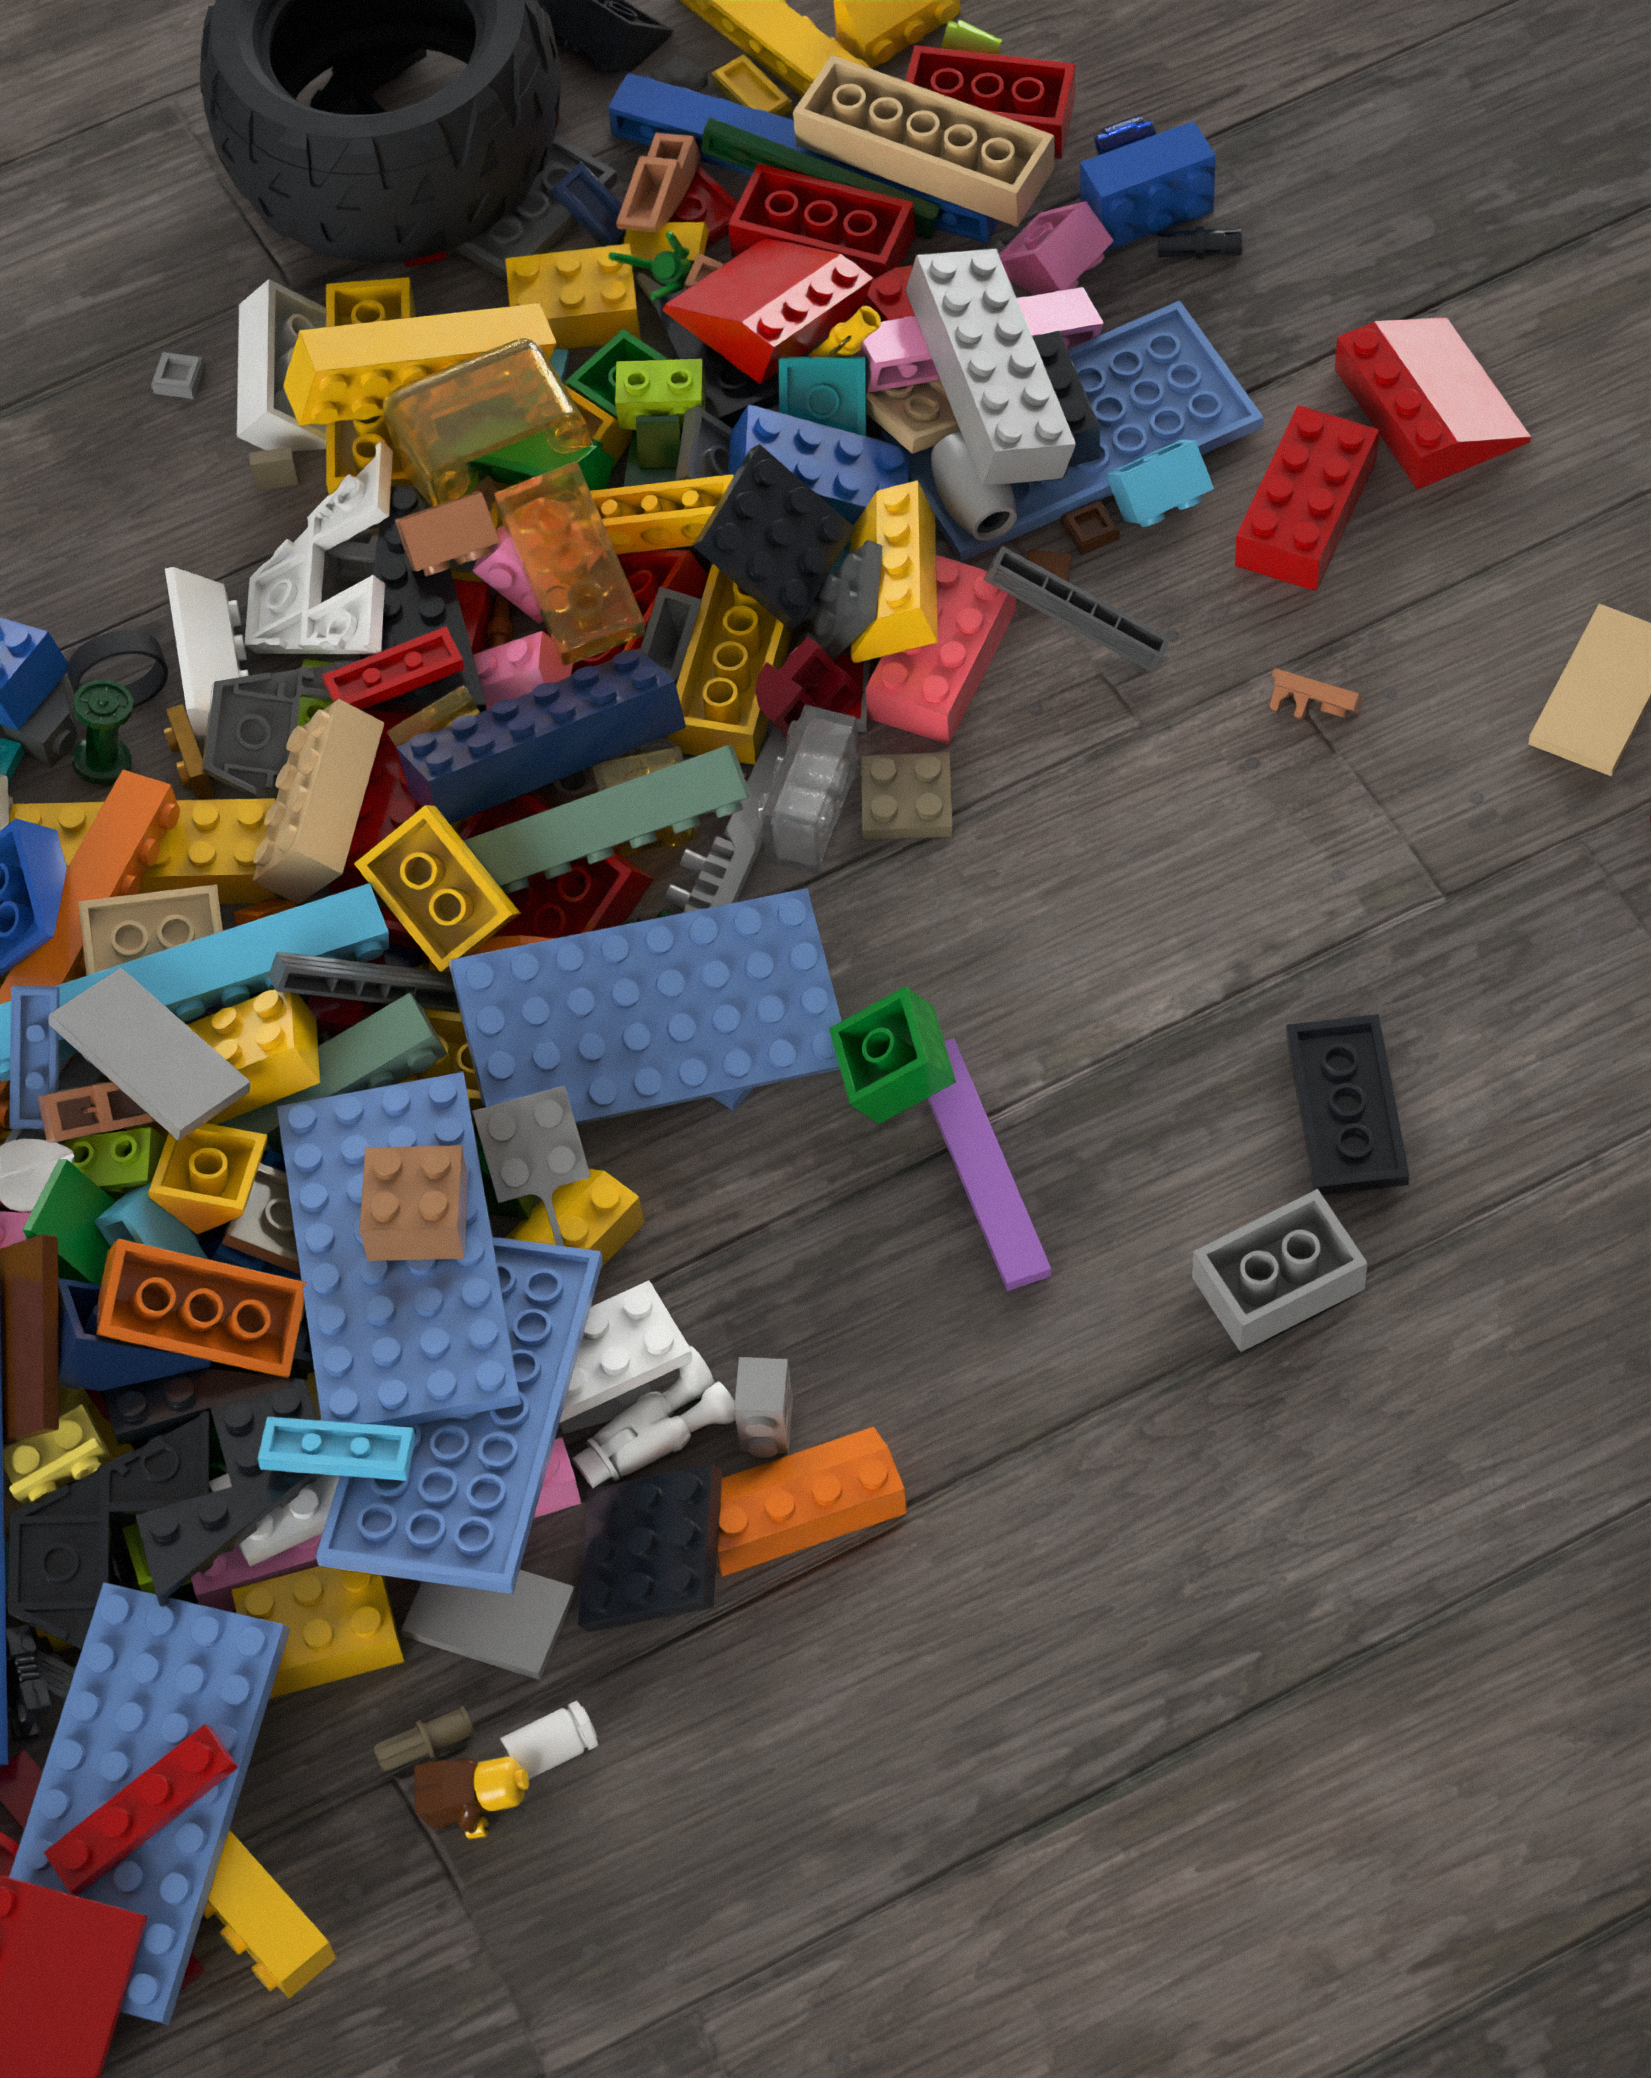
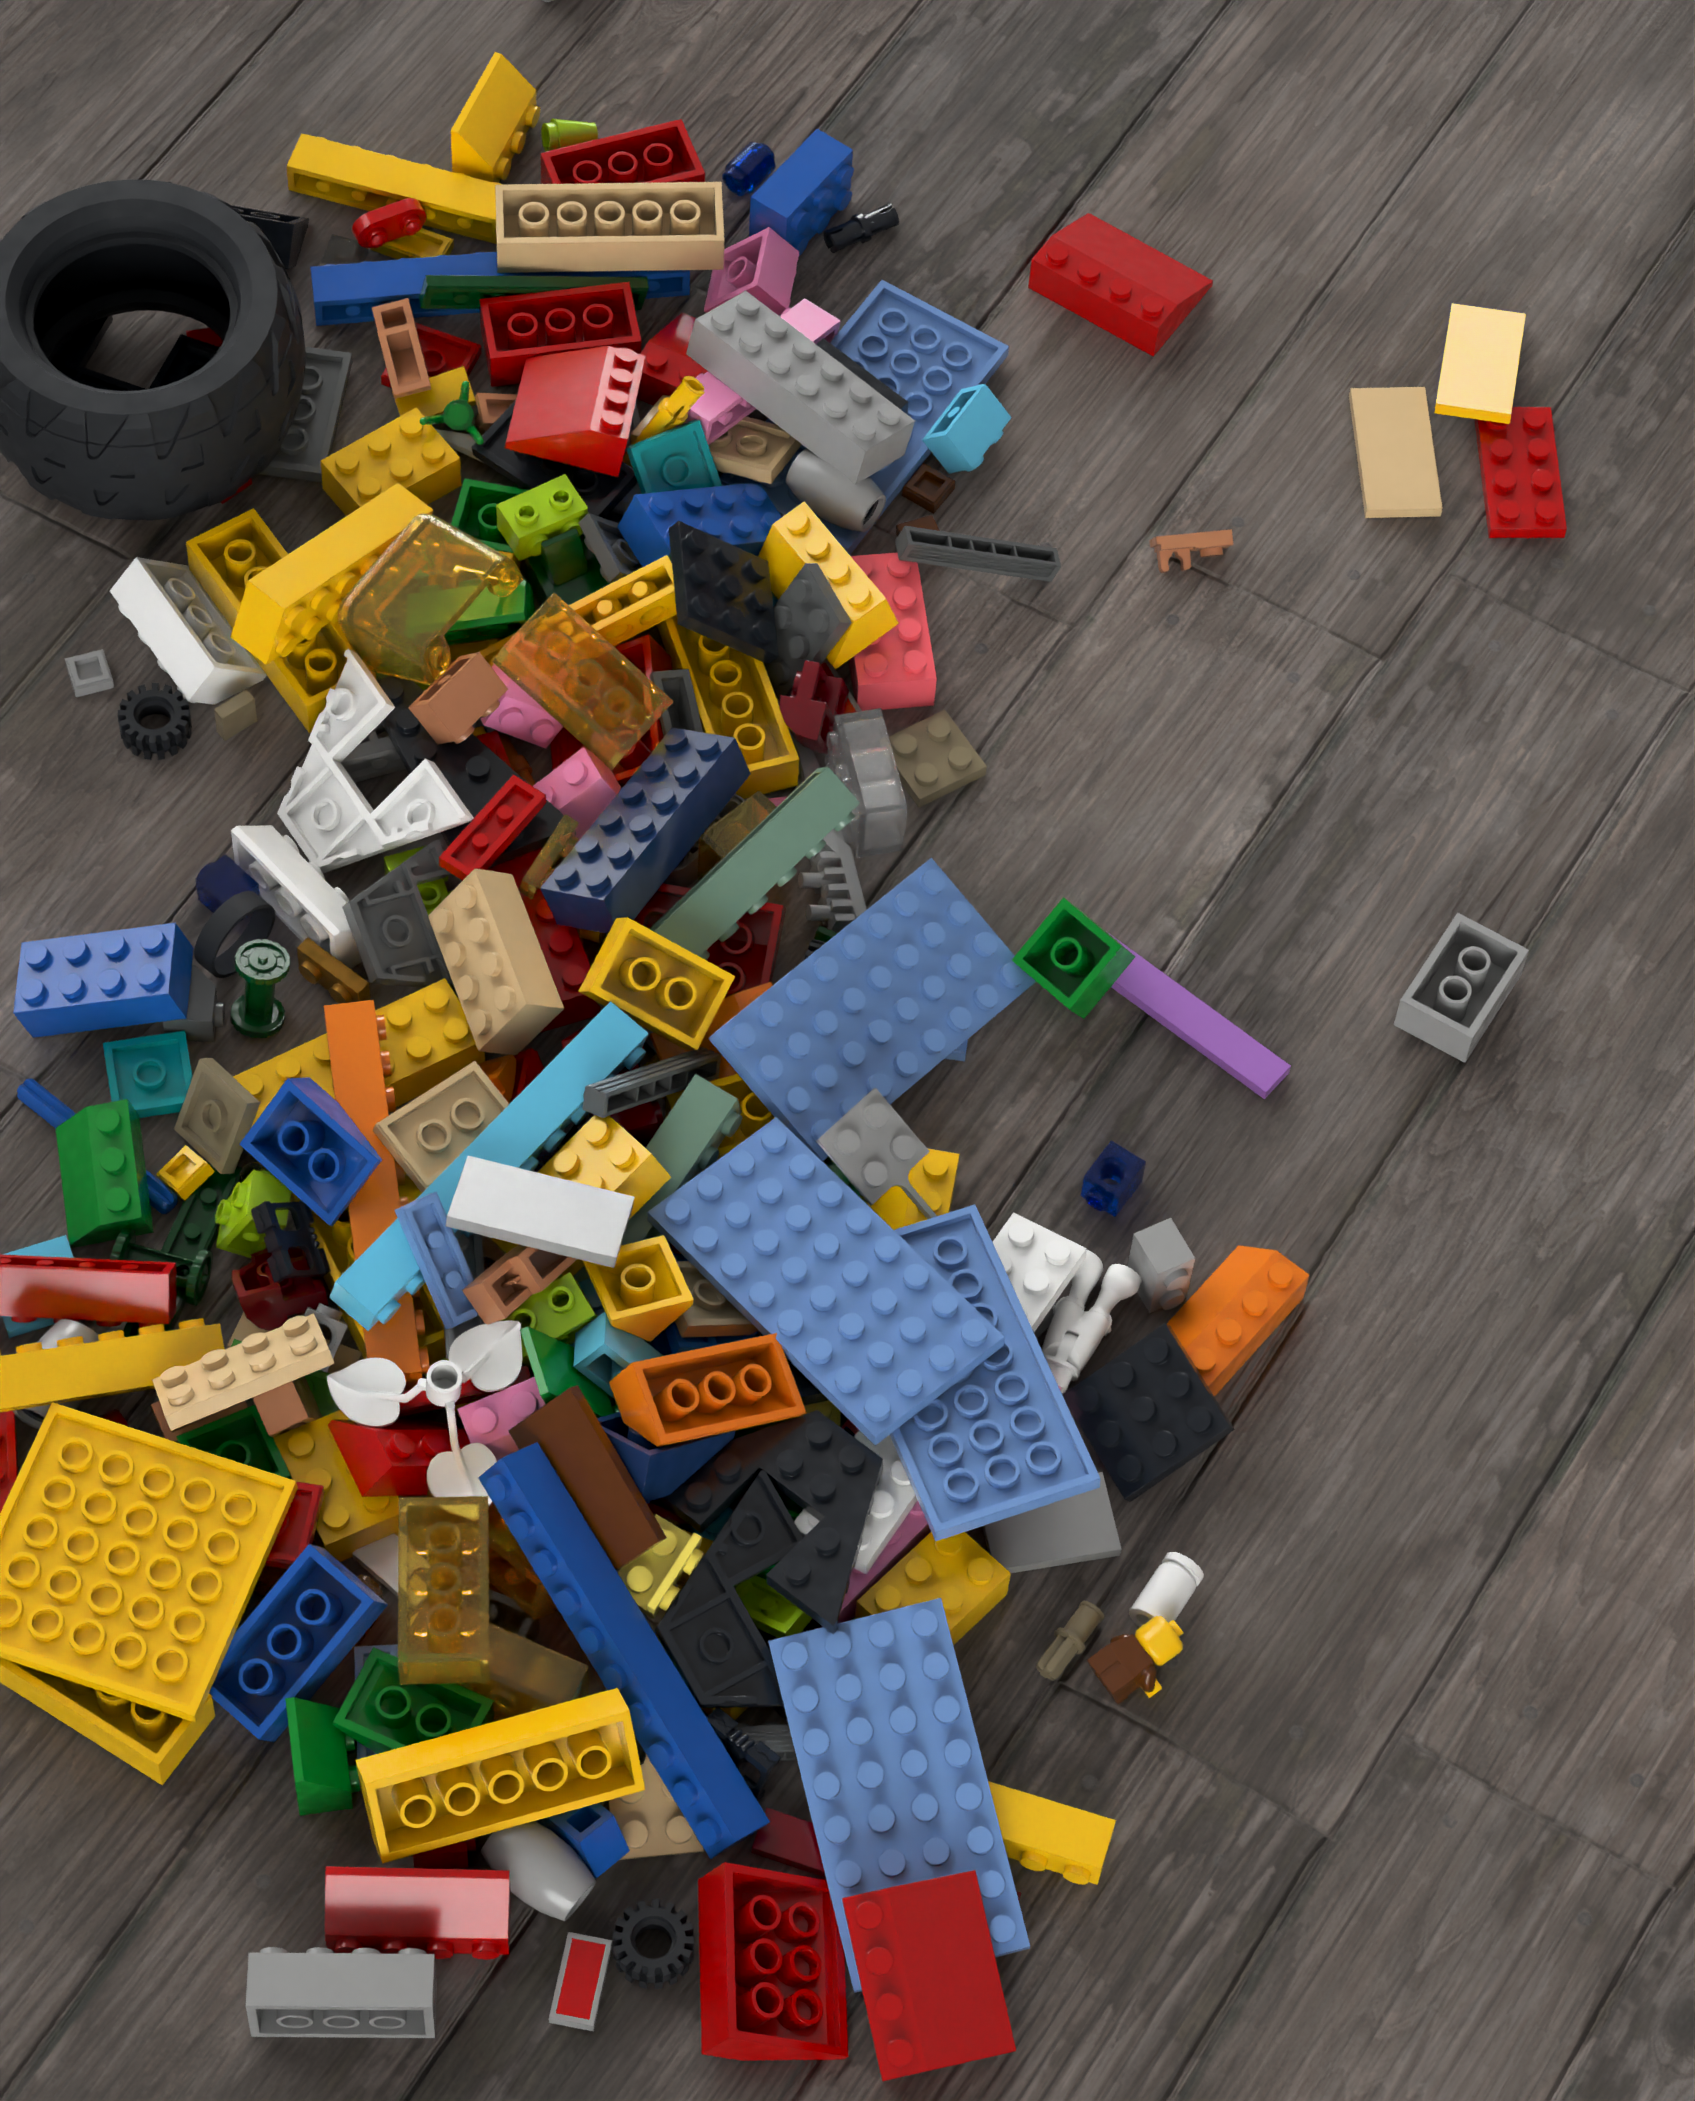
camera: 40 degrees left, 0 degrees up
(140, 1810) = (919, 1794): red plate -> none
(154, 618) = (221, 881): none -> clear blue brick
(203, 462) = (149, 703): none -> black tyre
(336, 1448) = (896, 1444): medium azure plate -> none
(414, 1203) = (830, 1229): medium nougat brick -> none
(590, 204) = (354, 389): dark blue tile -> none
(732, 60) = (389, 223): none -> red plate
(788, 1279) = (1113, 1164): none -> clear blue brick
(1306, 498) = (1084, 396): red brick -> none
(1347, 1104) = (1420, 844): black plate -> none

